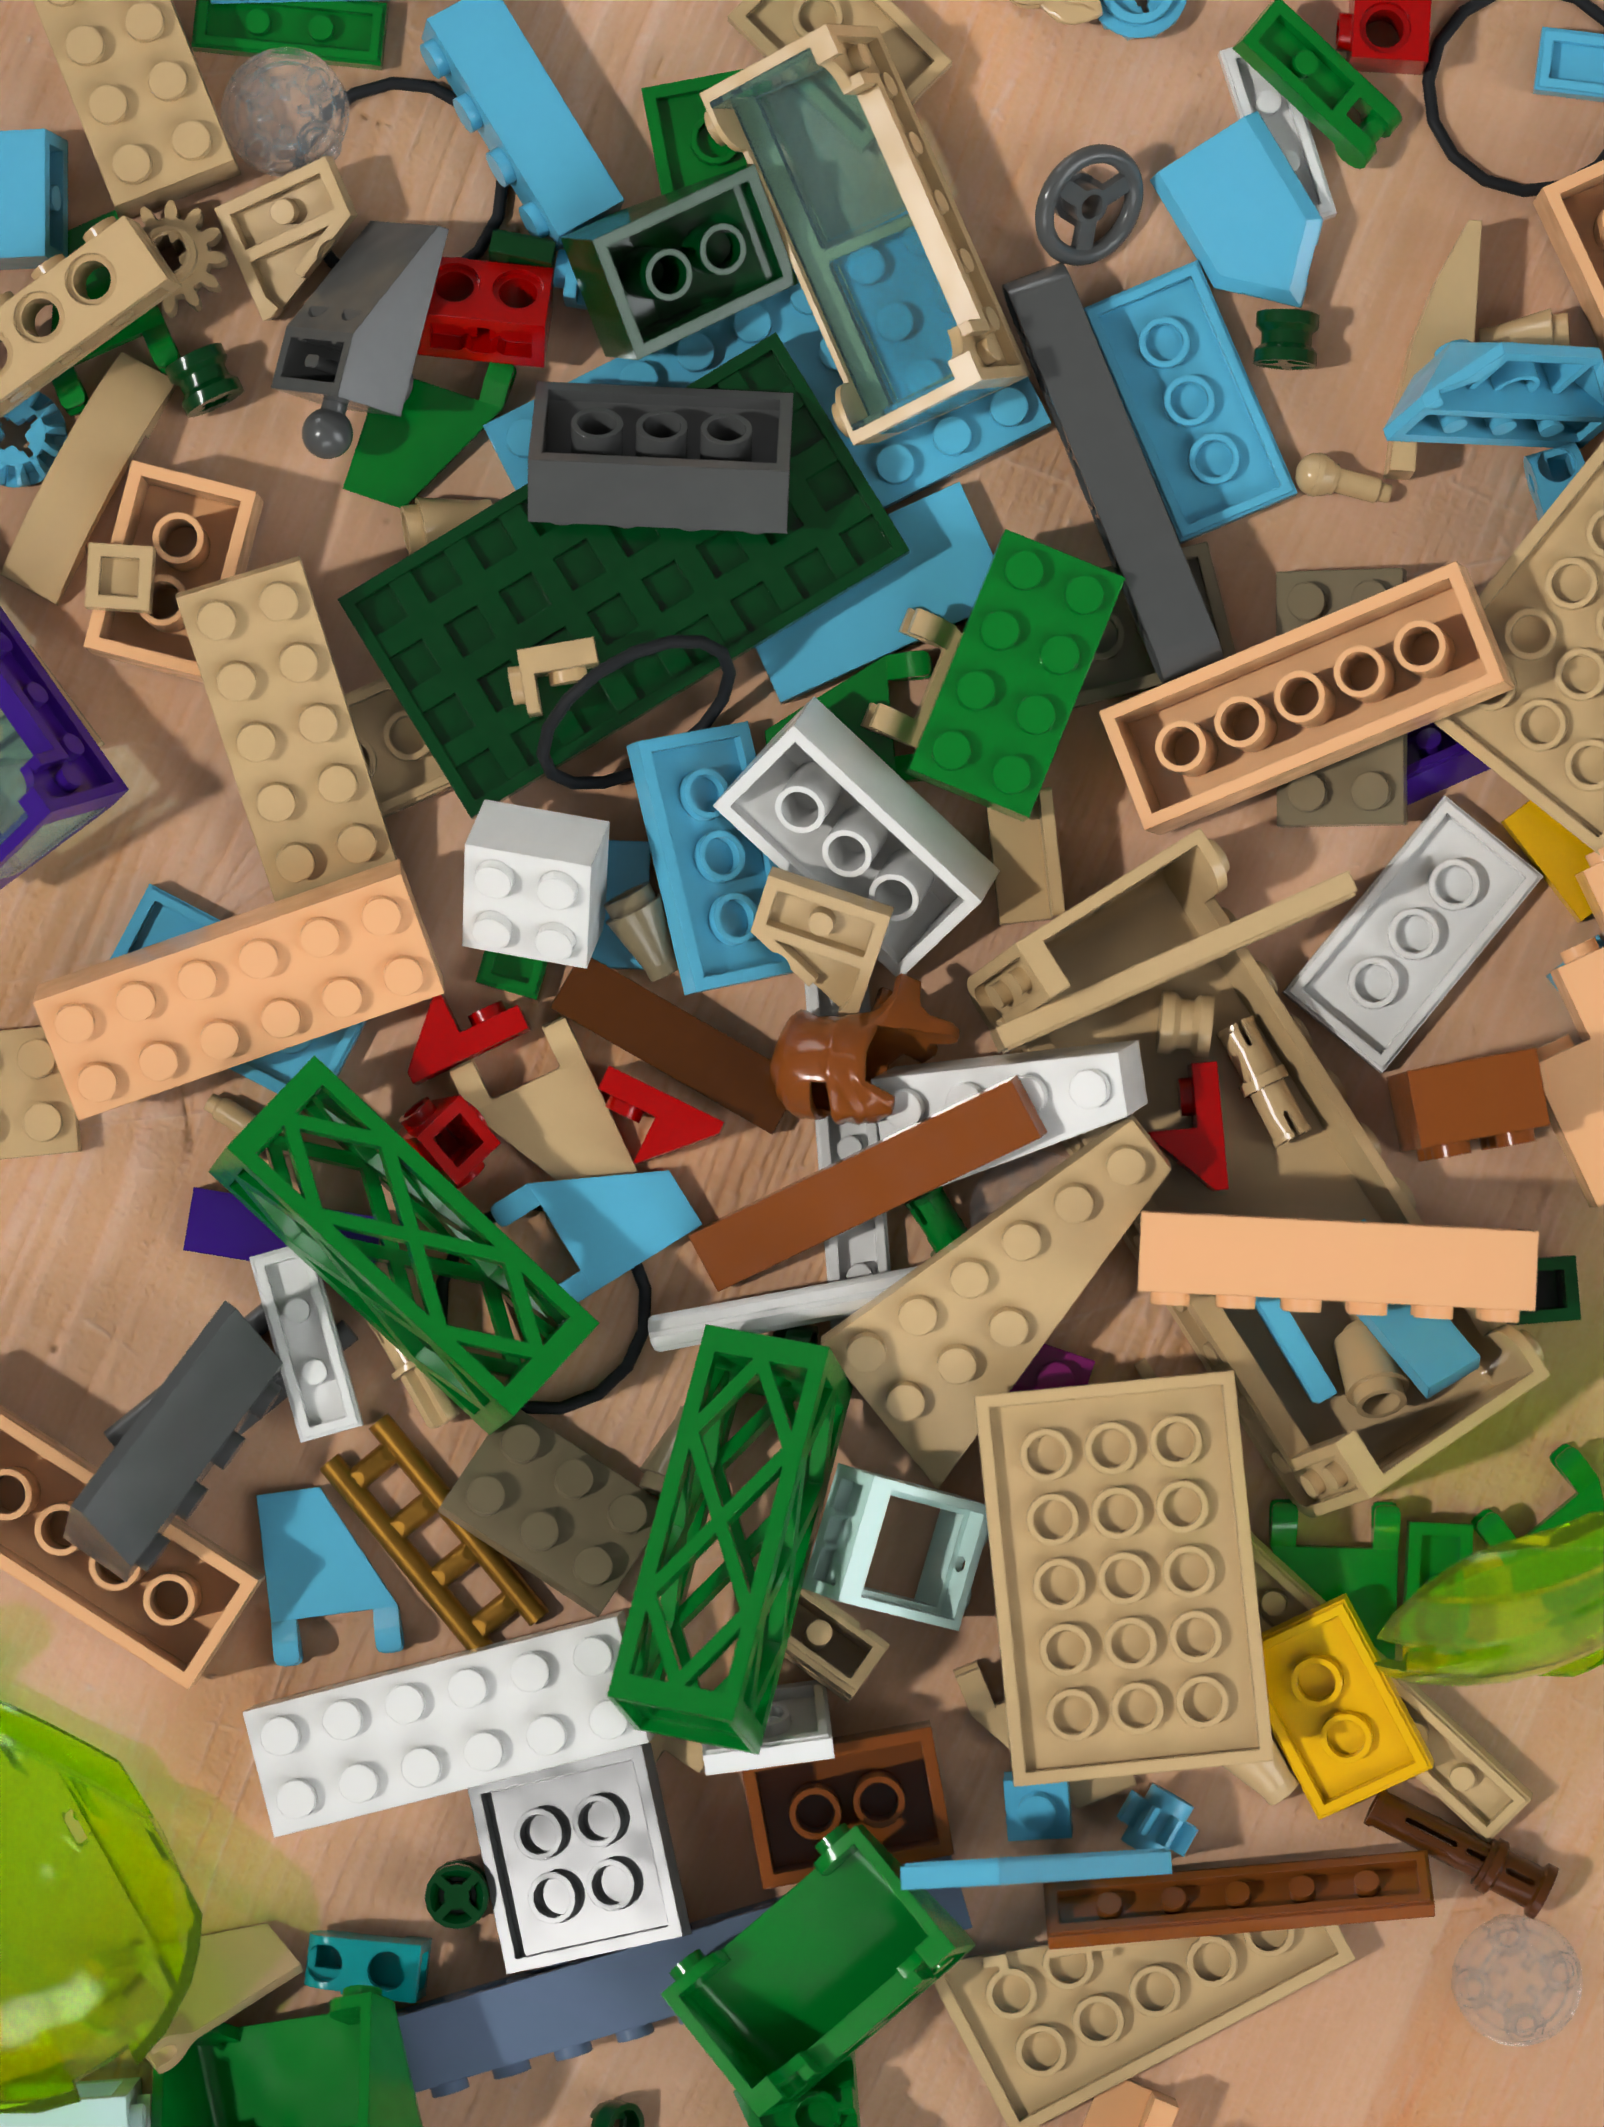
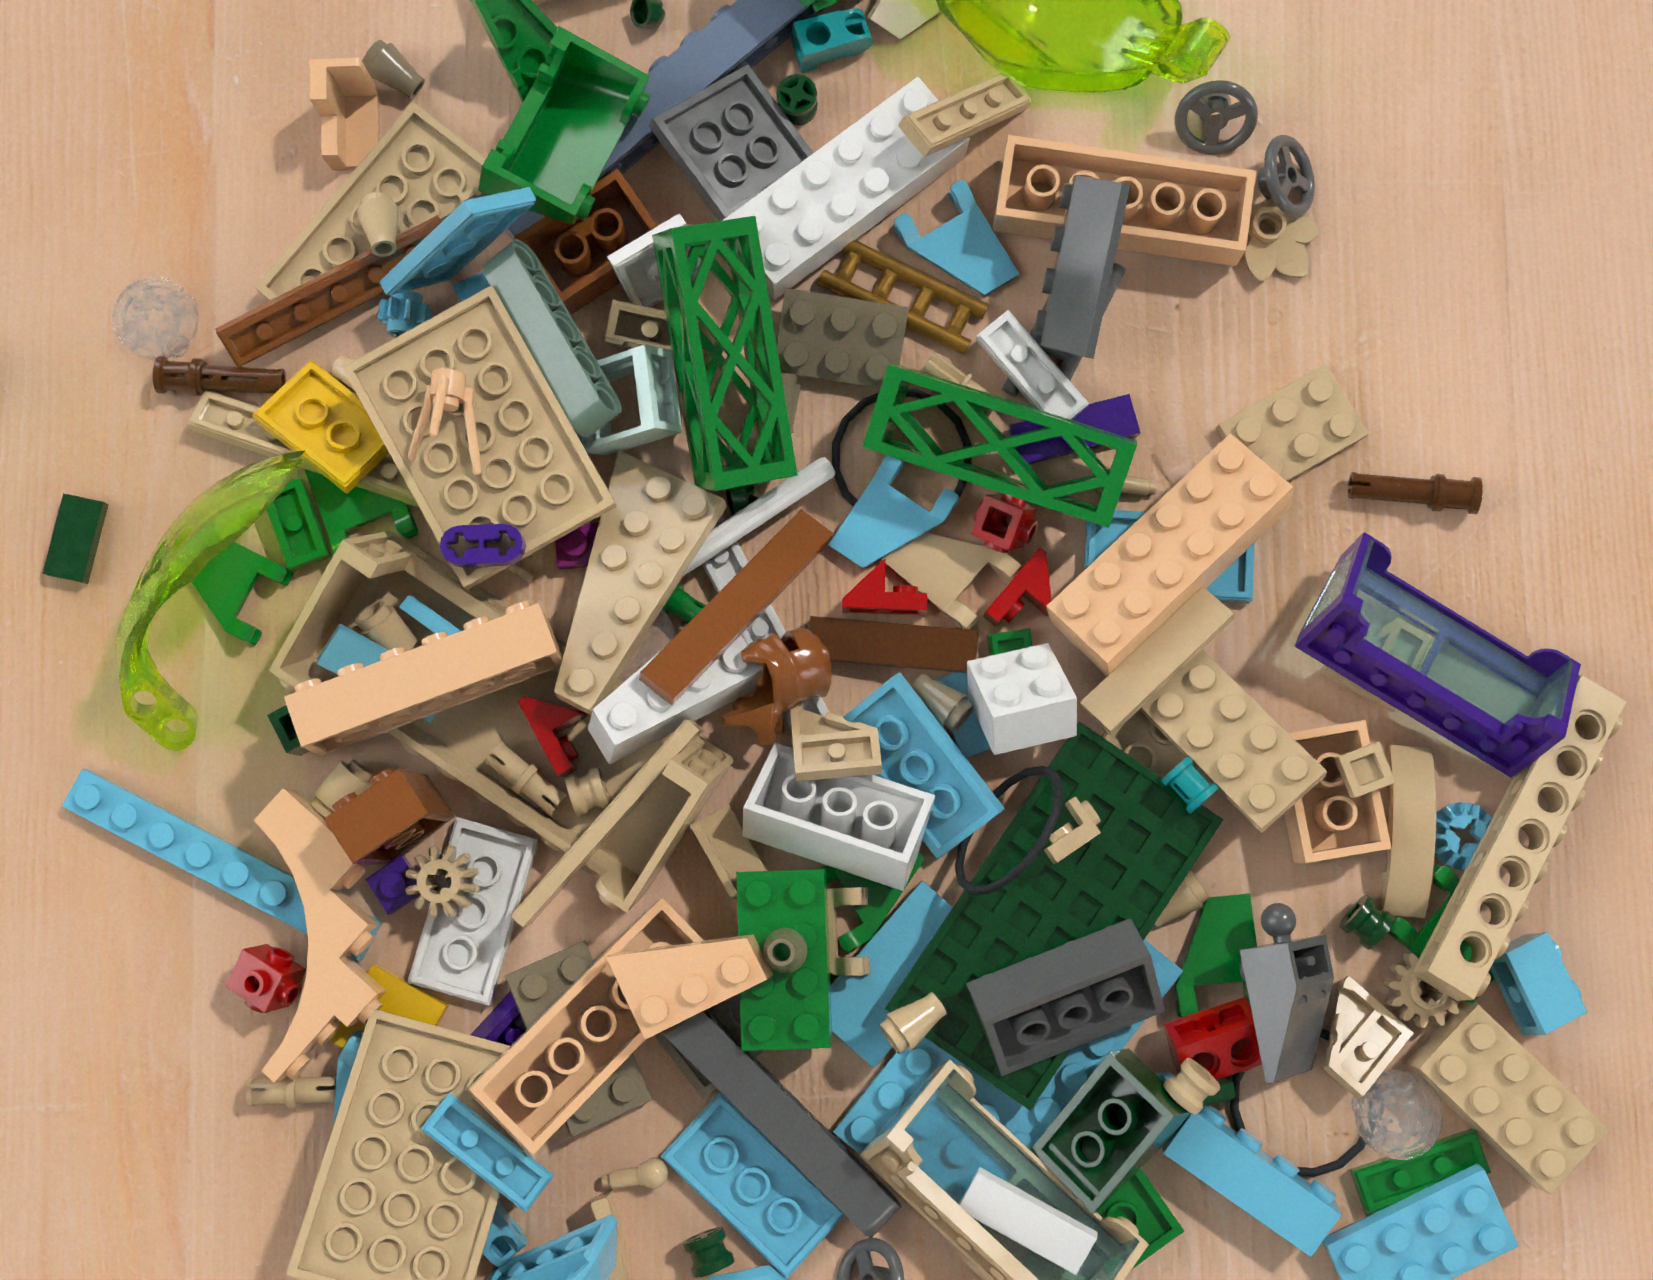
camera: 160 degrees right, 5 degrees down
(233, 1749) = (964, 114): none -> tan tile
(326, 852) = (1157, 660): none -> tan tile
(363, 663) = (1189, 784): none -> teal bush
(547, 269) = (1191, 1086): none -> tan wheel
(843, 193) = (1028, 1220): none -> white tile
(882, 514) = (910, 1023): none -> tan cone
(961, 1676) = (552, 338): none -> sand green beam
(996, 693) = (797, 947): none -> dark tan cone
(1136, 1968) = (379, 220): none -> tan cone
(1141, 1653) = (445, 394): none -> light nougat plant
(1154, 699) = (685, 979): none -> light nougat wedge
(1175, 1428) = (482, 535): none -> dark purple beam
(1440, 1008) = (447, 896): none -> tan gear
(1504, 1017) = (391, 883): none -> dark purple plate
(1520, 595) = (487, 1152): none -> medium azure tile
(1524, 1177) = (339, 783): none -> tan brick

